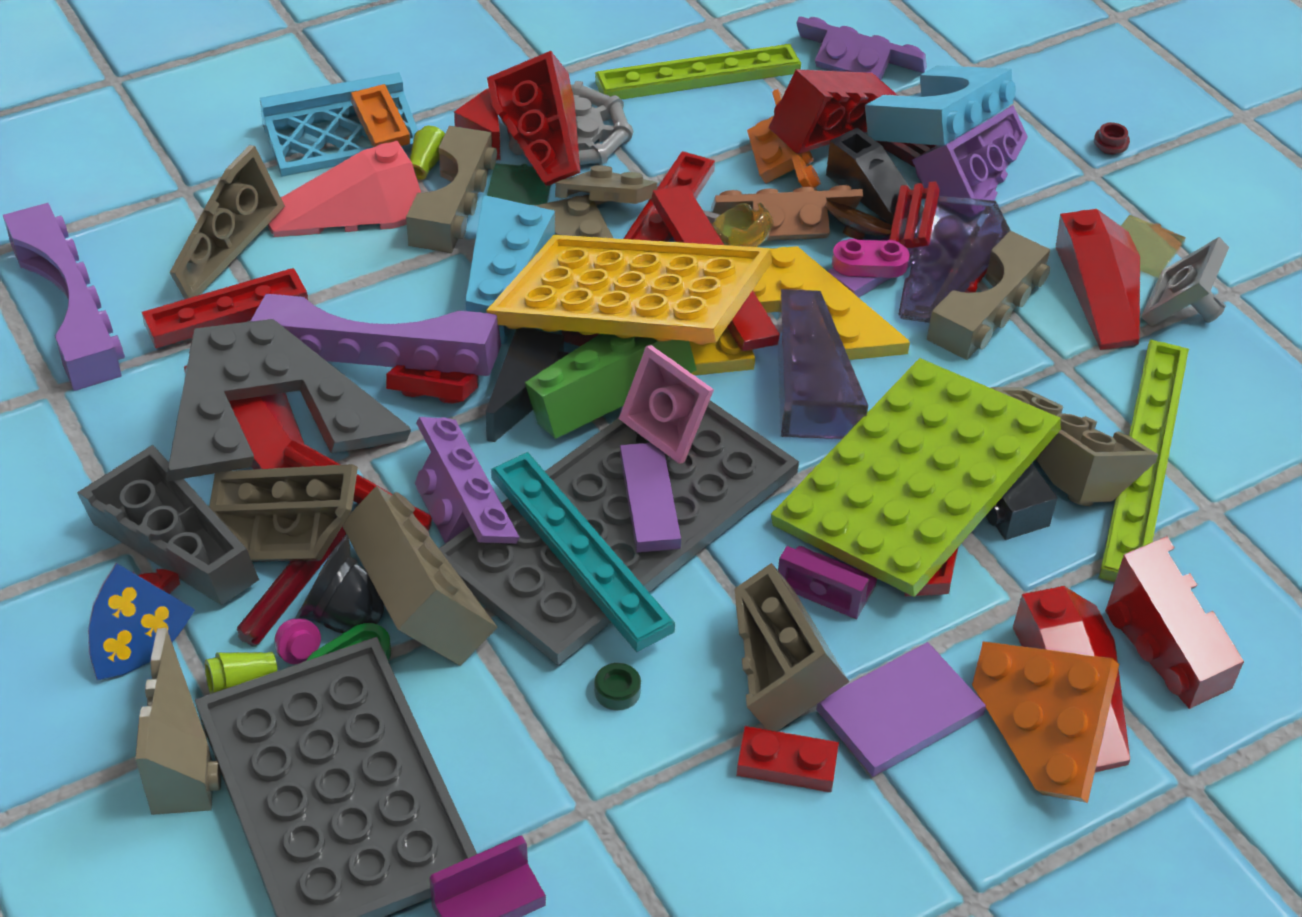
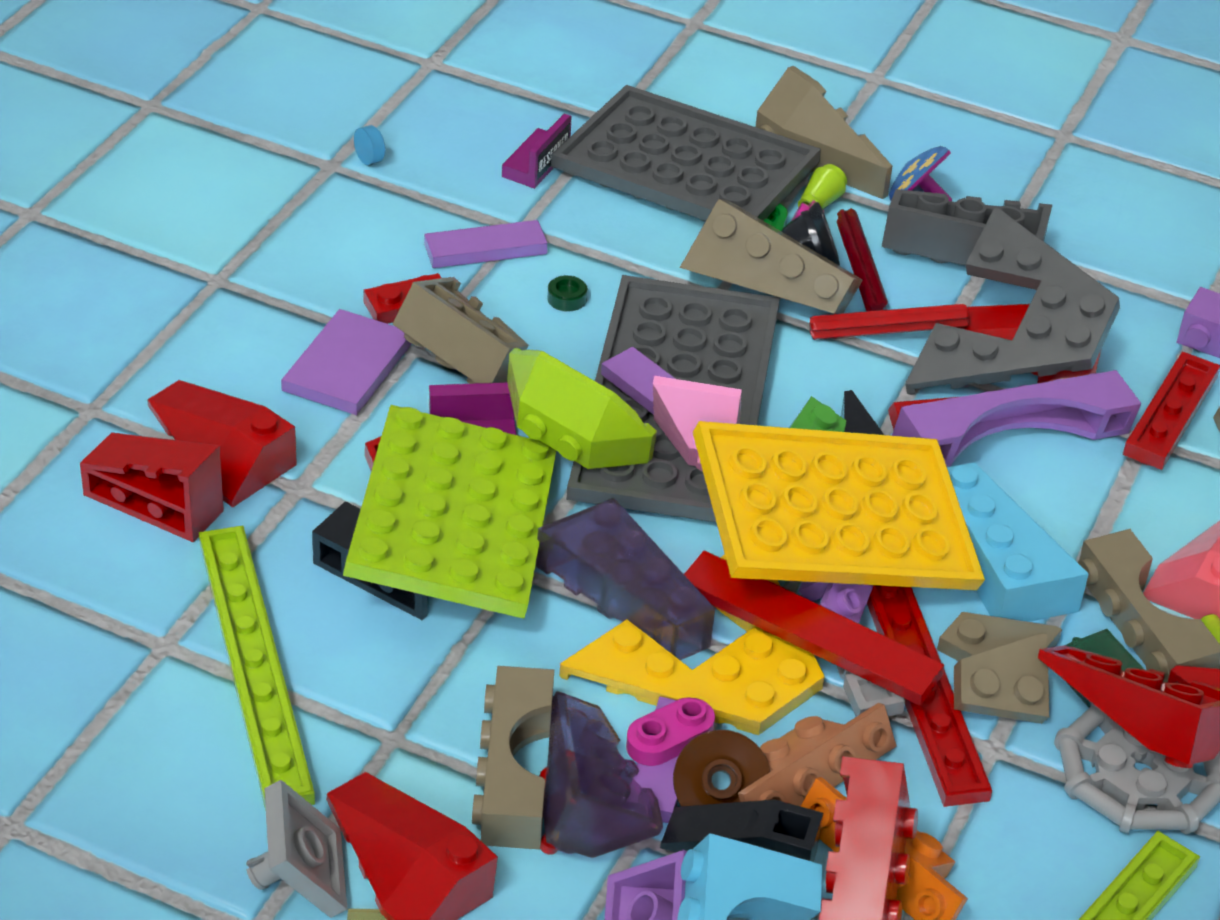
camera: 145 degrees right, 5 degrees down
(285, 510) = (904, 265): dark tan wedge -> none
(457, 487) = (809, 339): medium lavender bracket -> none
(583, 552) = (676, 336): teal tile -> none
(651, 793) = (485, 244): none -> medium lavender tile
(744, 225) = (822, 684): clear yellow hair -> none
(761, 474) = (575, 413): none -> lime wedge
(915, 197) = (661, 791): red tile -> none
(1049, 712) = (233, 375): orange plate -> none
(1084, 460) = (330, 615): dark tan wedge -> none

